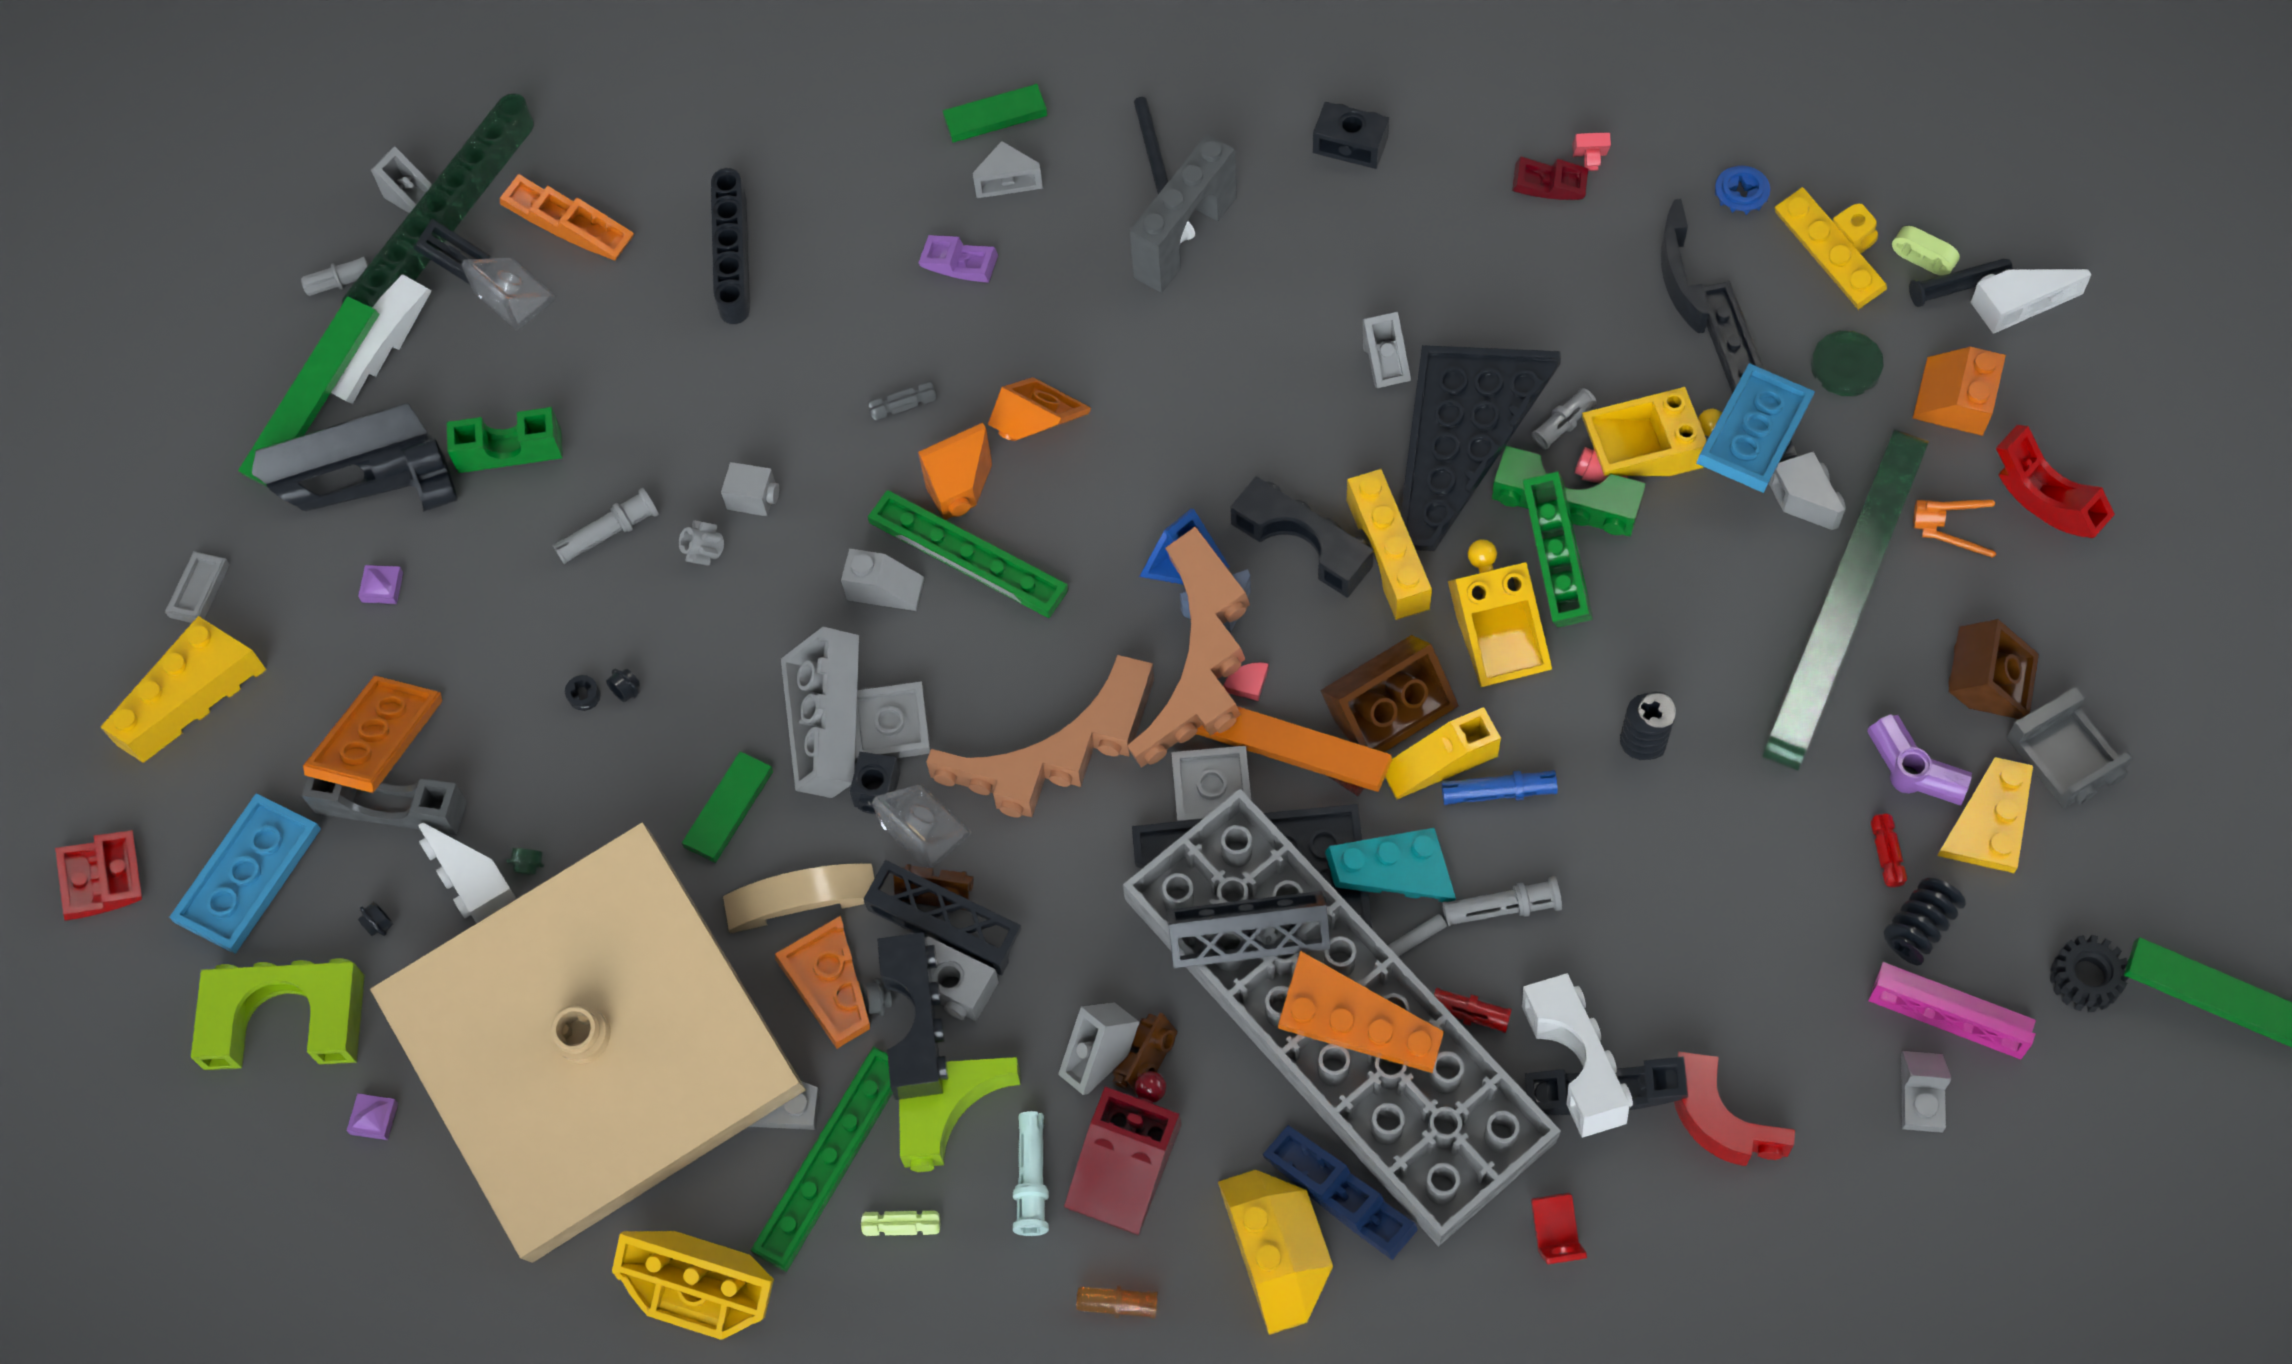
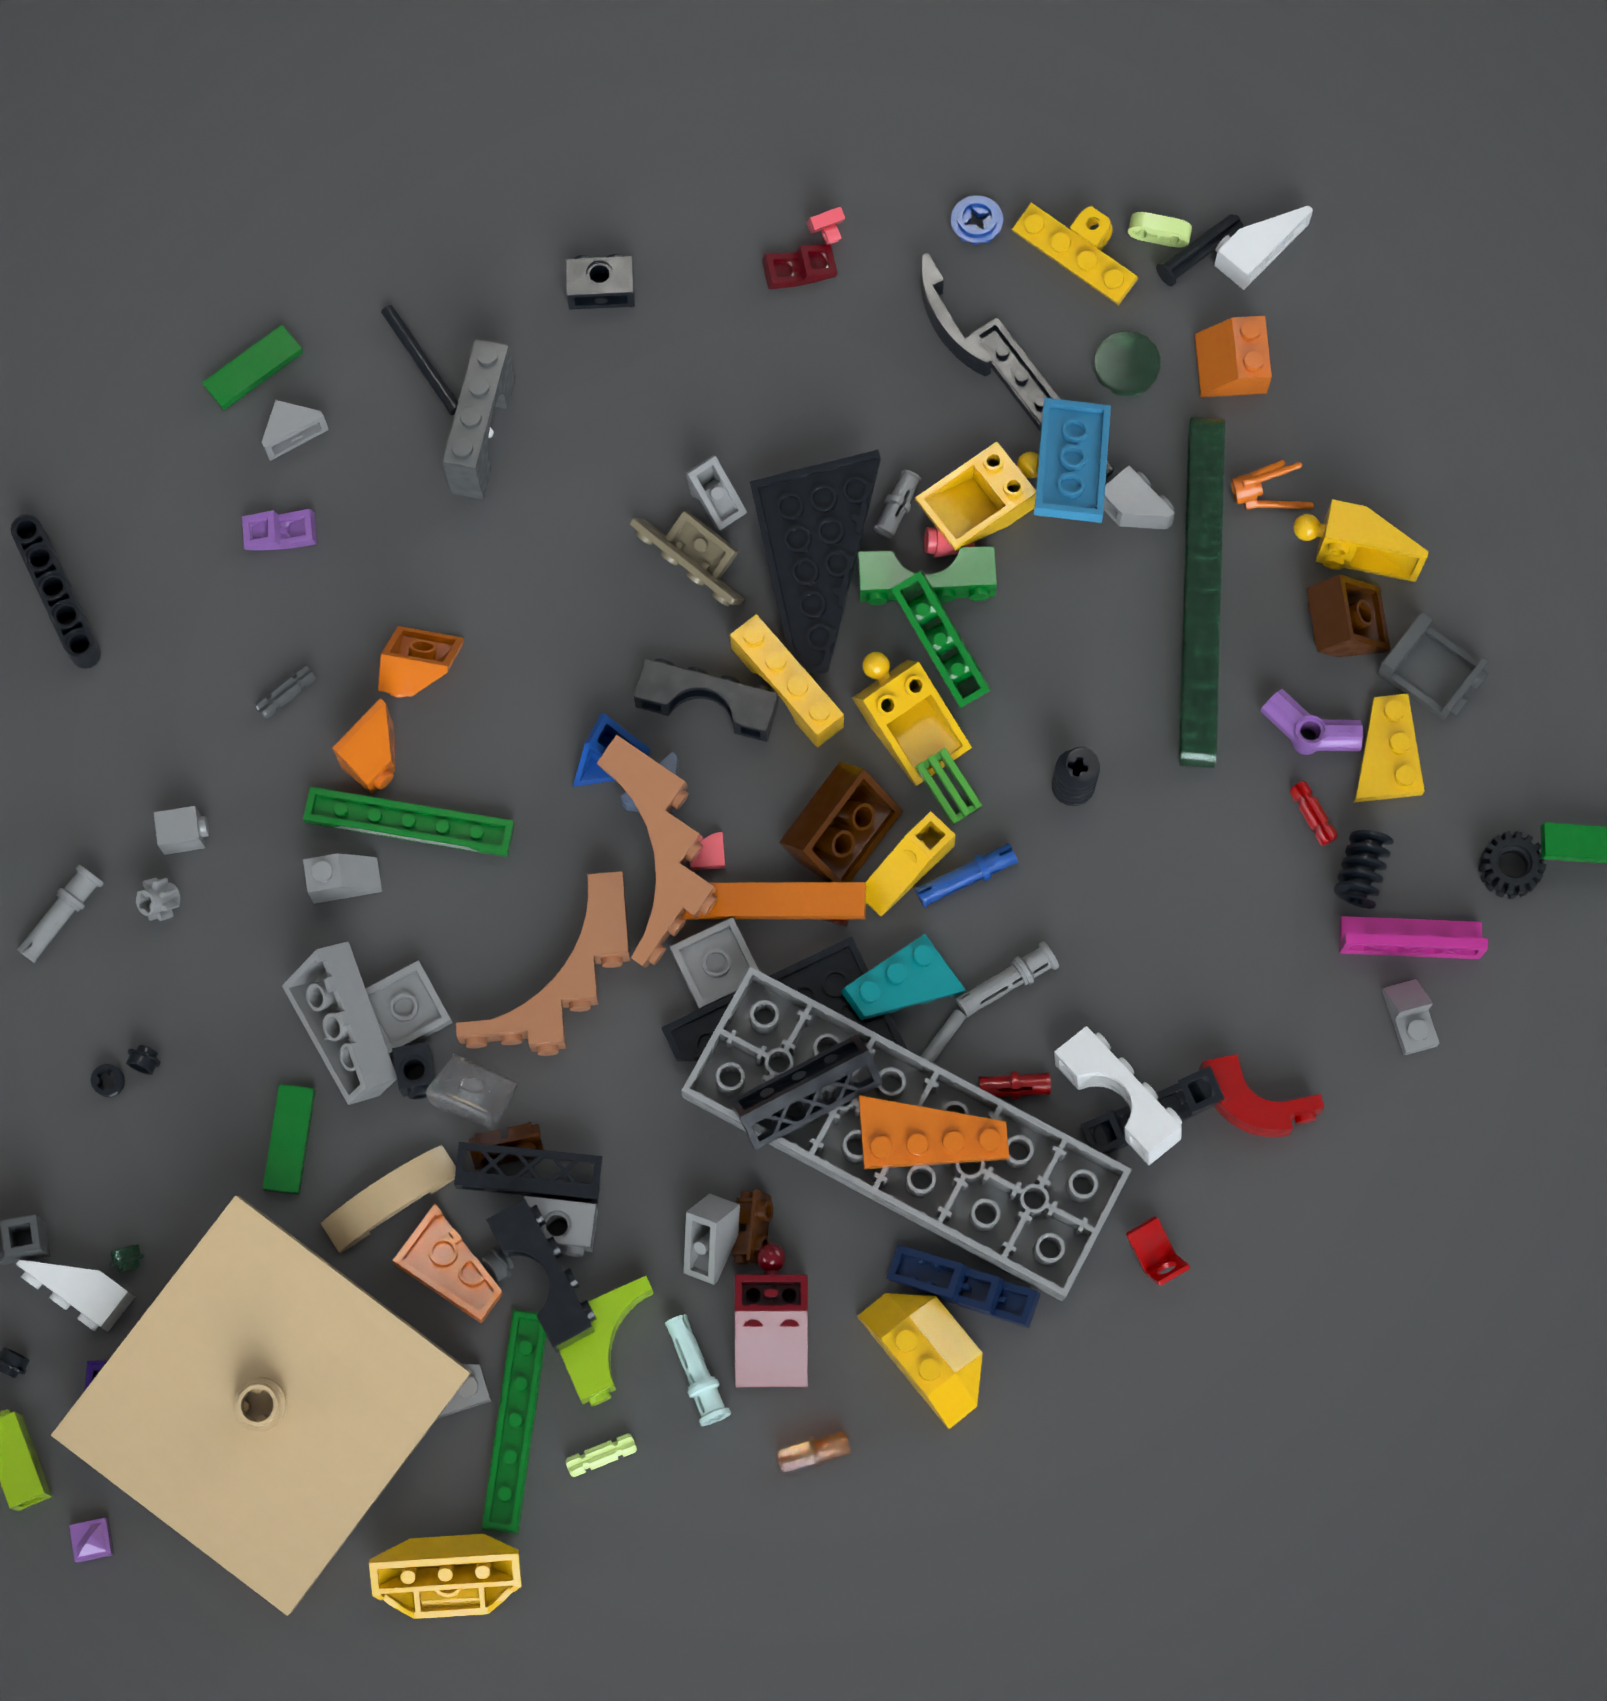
camera: 25 degrees left, 10 degrees up
(1348, 397) = (697, 550): none -> dark tan bracket
(1507, 667) = (960, 780): none -> bright green tile
(2035, 600) = (1362, 542): none -> yellow slope
(2046, 493) = (1340, 434): red arch -> none

